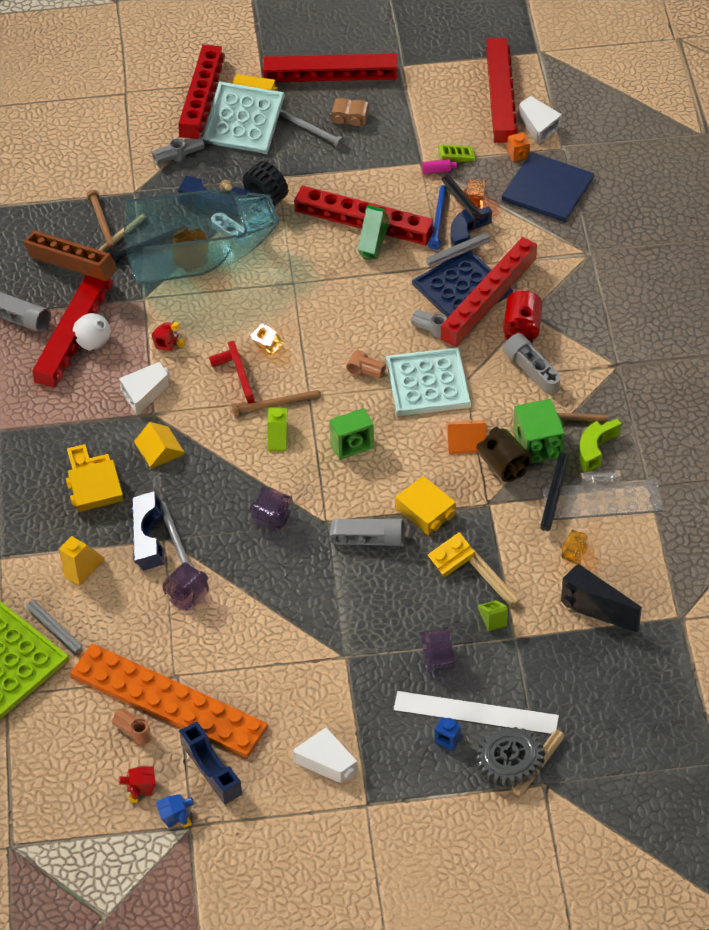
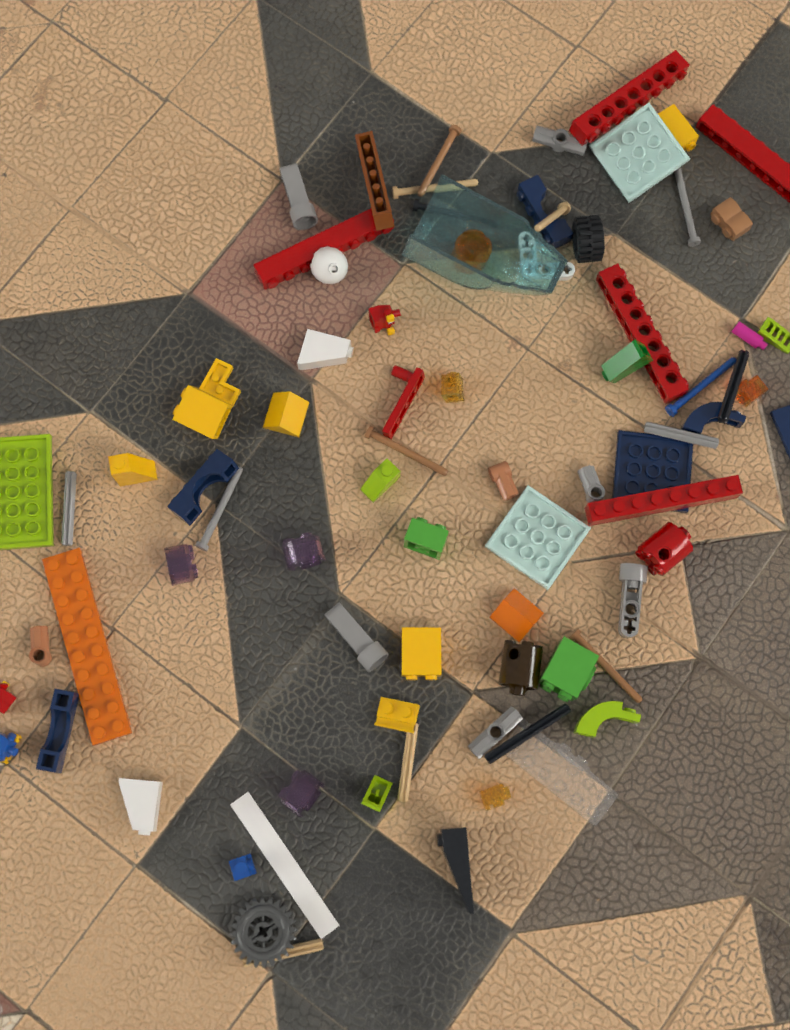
camera: 40 degrees right, 25 degrees up
(532, 510) = (504, 723): none -> light grey piece

